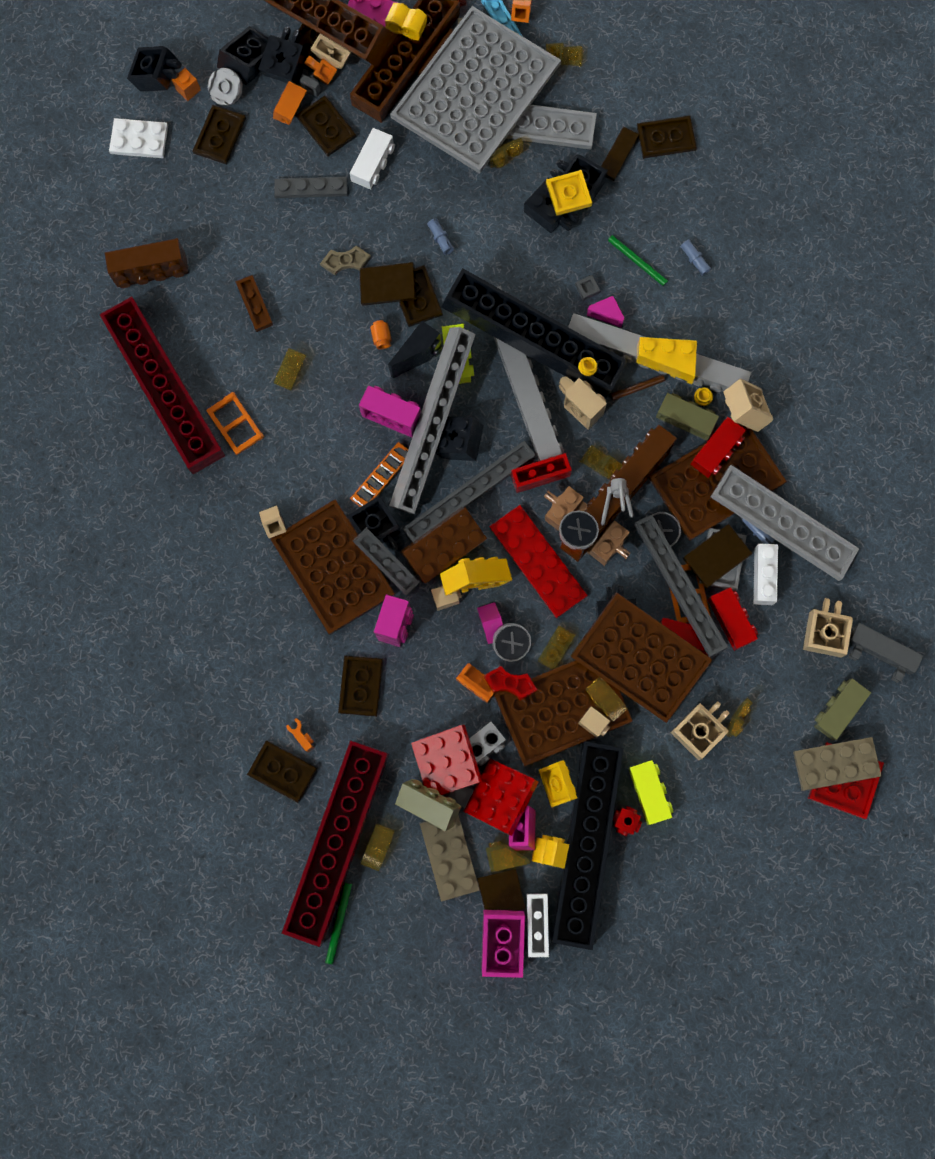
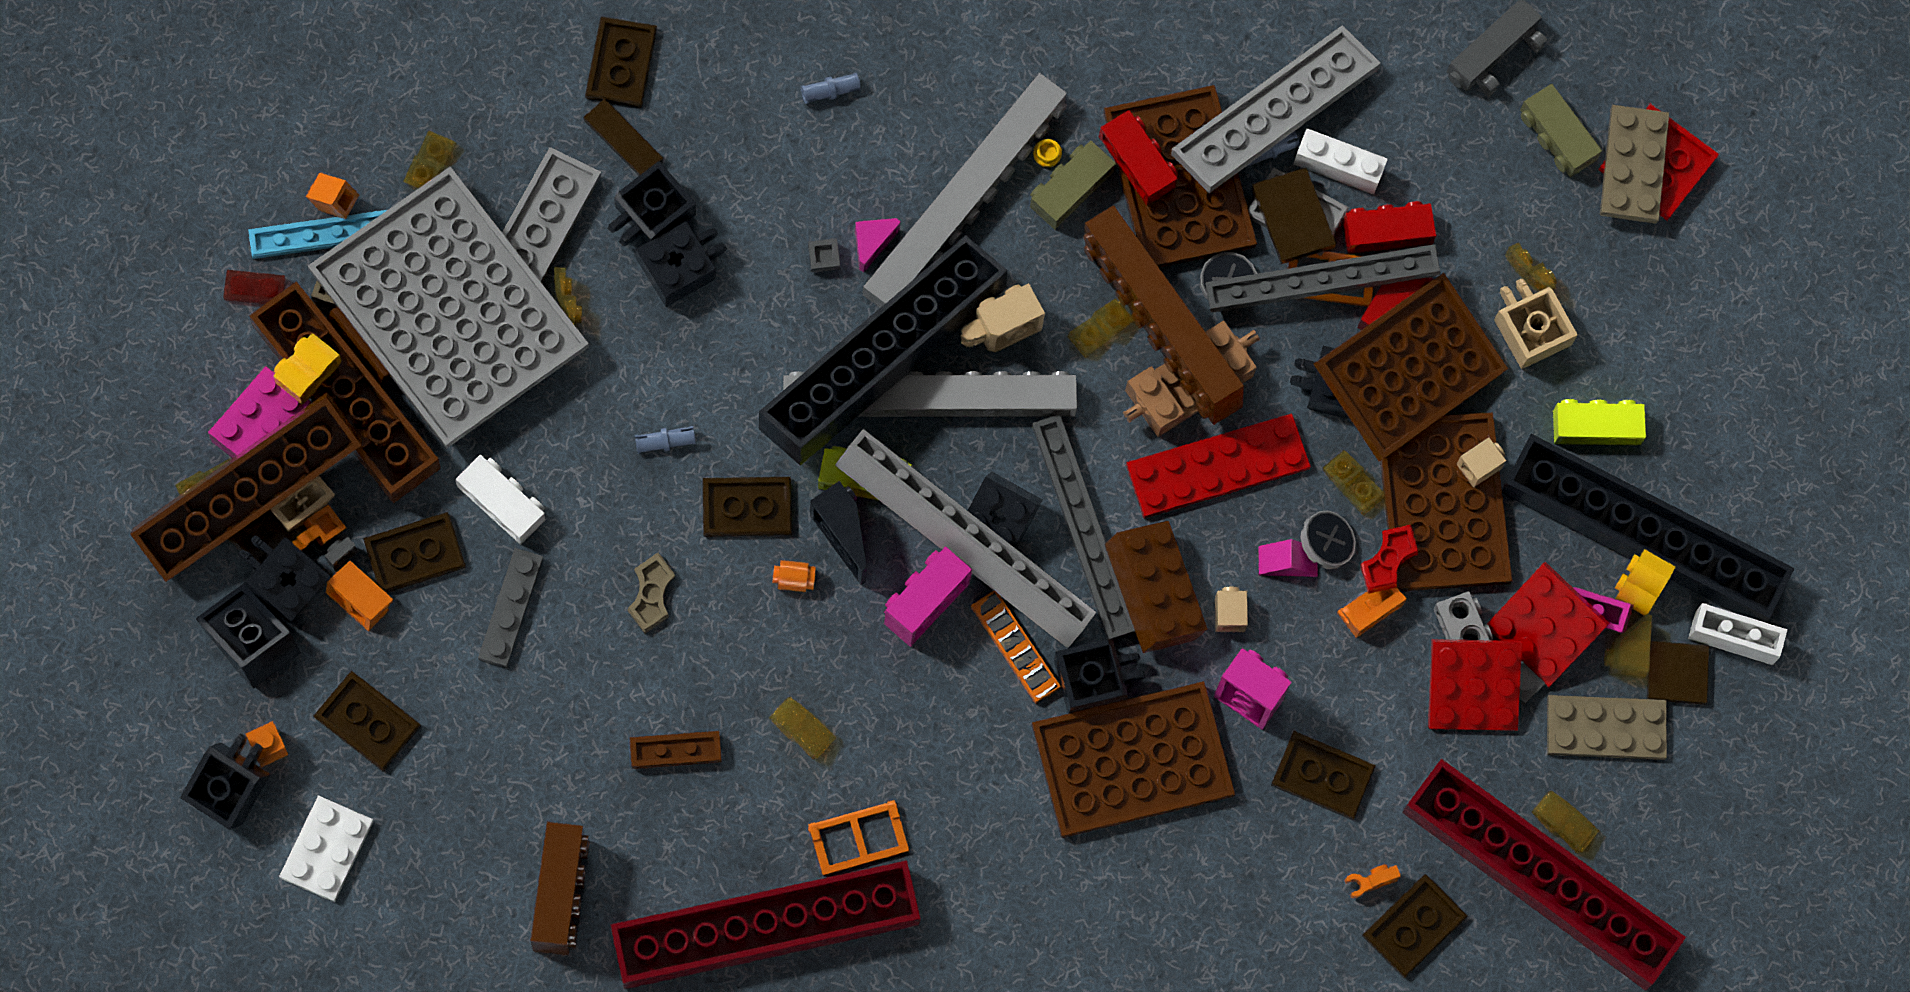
camera: 85 degrees left, 5 degrees down
(225, 86) = (293, 685): light grey tile -> none
(272, 522) = (1038, 822): tan brick -> none
(338, 923) = (1681, 926): green bar -> none
(386, 561) = (1156, 674): dark grey plate -> none
(387, 284) = (716, 540): dark brown tile -> none
(428, 804) = (1529, 727): olive brick -> none
(476, 574) = (1218, 554): yellow wedge -> none
(503, 943) = (1750, 687): dark pink brick -> none
(541, 473) = (1092, 415): red brick -> none
(558, 783) = (1552, 541): yellow plate -> none
(569, 192) = (680, 225): yellow plate -> none
(578, 530) = (1213, 380): black tile -> none
(587, 366) = (965, 289): yellow plate -> none
(607, 699) = (1453, 433): clear yellow slope -> none
(619, 490) = (1171, 306): light grey plant -> none
(622, 828) = (1635, 457): red brick -> none
(637, 260) = (804, 170): green bar -> none
(637, 387) = (1001, 232): reddish brown bar -> none
(669, 356) = (984, 173): yellow wedge -> none
(748, 405) = (1092, 94): tan hinge -> none
(838, 626) = (1432, 110): tan hinge -> none

